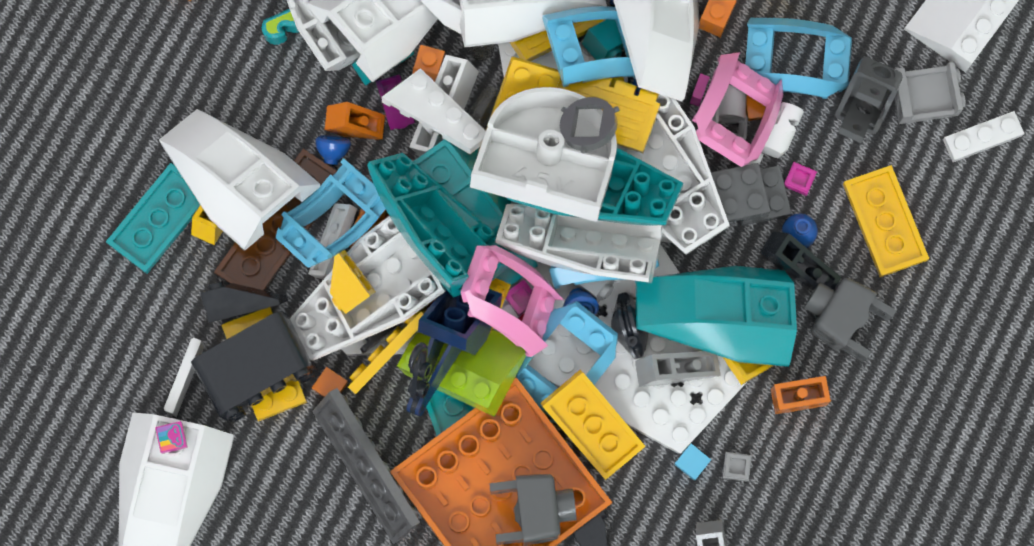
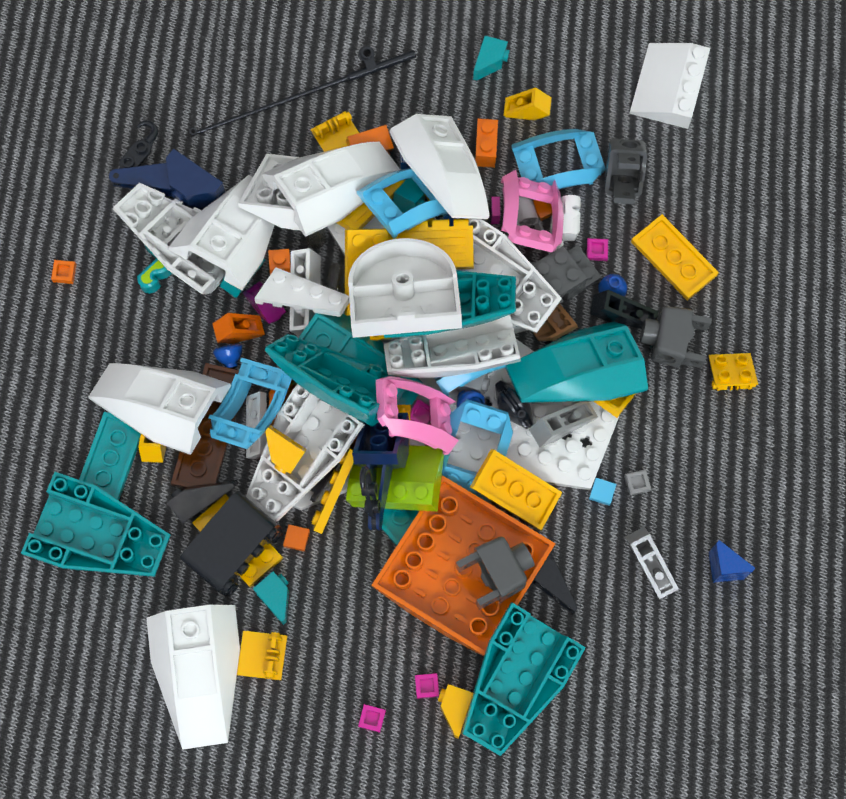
camera: 20 degrees left, 5 degrees down
(109, 296) = (94, 532): none -> teal wedge
(171, 437) = (186, 623): tile -> none
(183, 378) = (177, 575): white tile -> none
(243, 501) = (262, 655): none -> yellow hinge
(281, 441) = (274, 595): none -> teal slope
(366, 466) = (350, 589): flat silver plate -> none
(607, 128) = (430, 271): dark grey piece -> none
(716, 251) = (556, 325): none -> medium nougat slope
(800, 395) = (664, 409): orange brick -> none
(898, 379) = (732, 371): none -> yellow hinge
(929, 94) = (669, 153): light grey panel -> none
(983, 136) = (720, 169): white plate -> none

